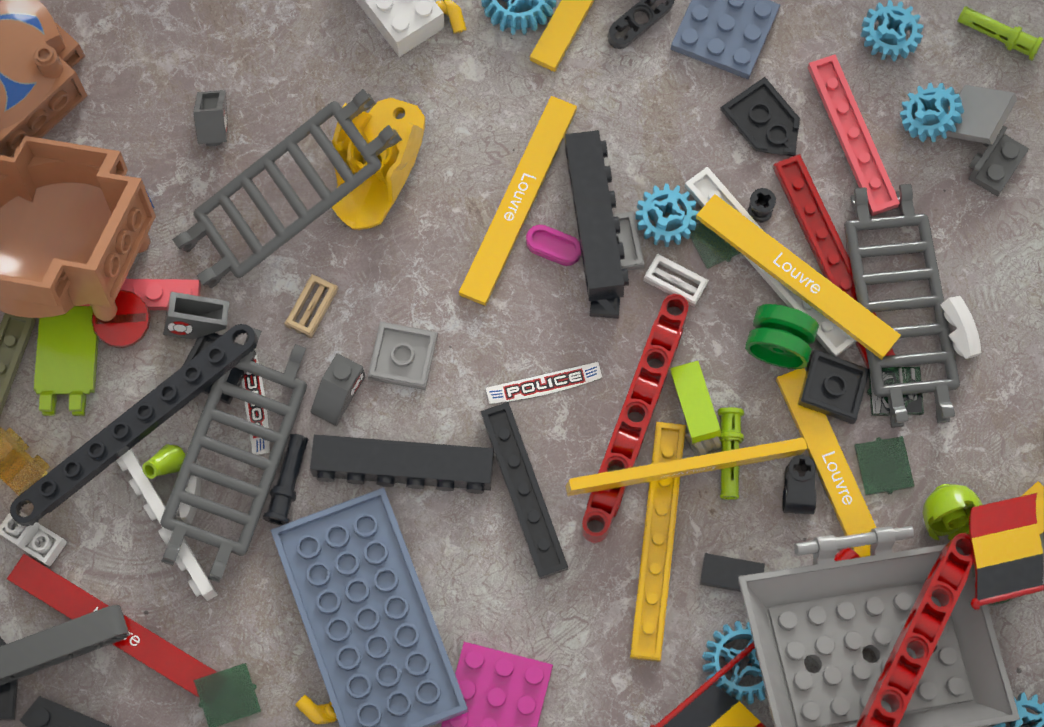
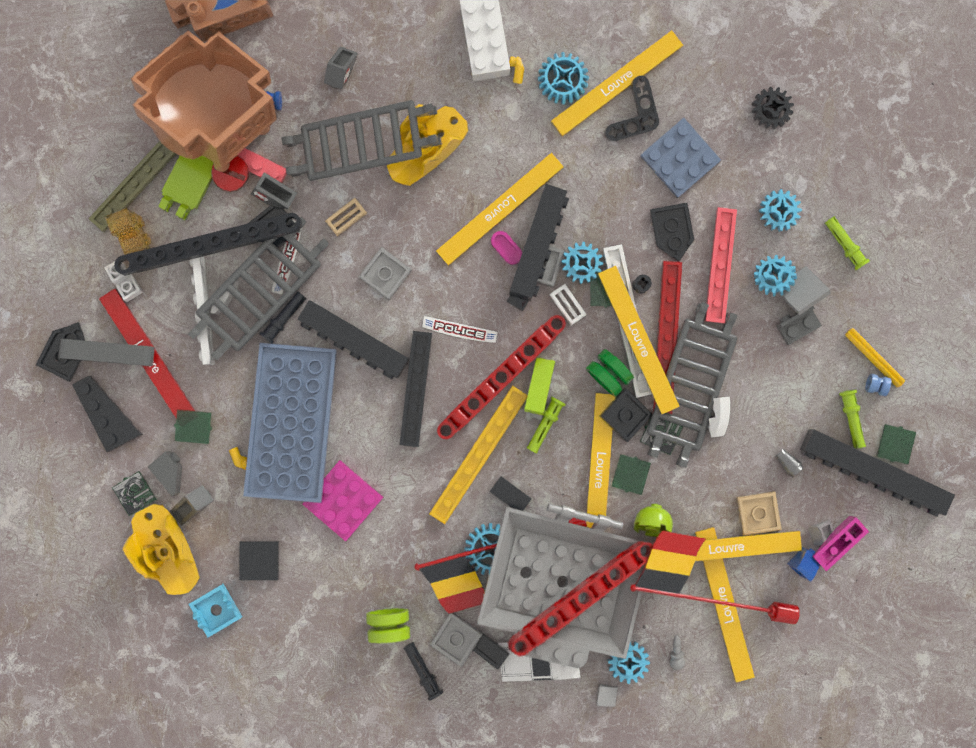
camera: 25 degrees right, 15 degrees up
(165, 461) = (218, 273): lime cone -> none
(337, 389) = (336, 277): dark grey slope -> none
(685, 466) = (498, 420): yellow tile -> none
(799, 491) = (572, 468): black piece -> none

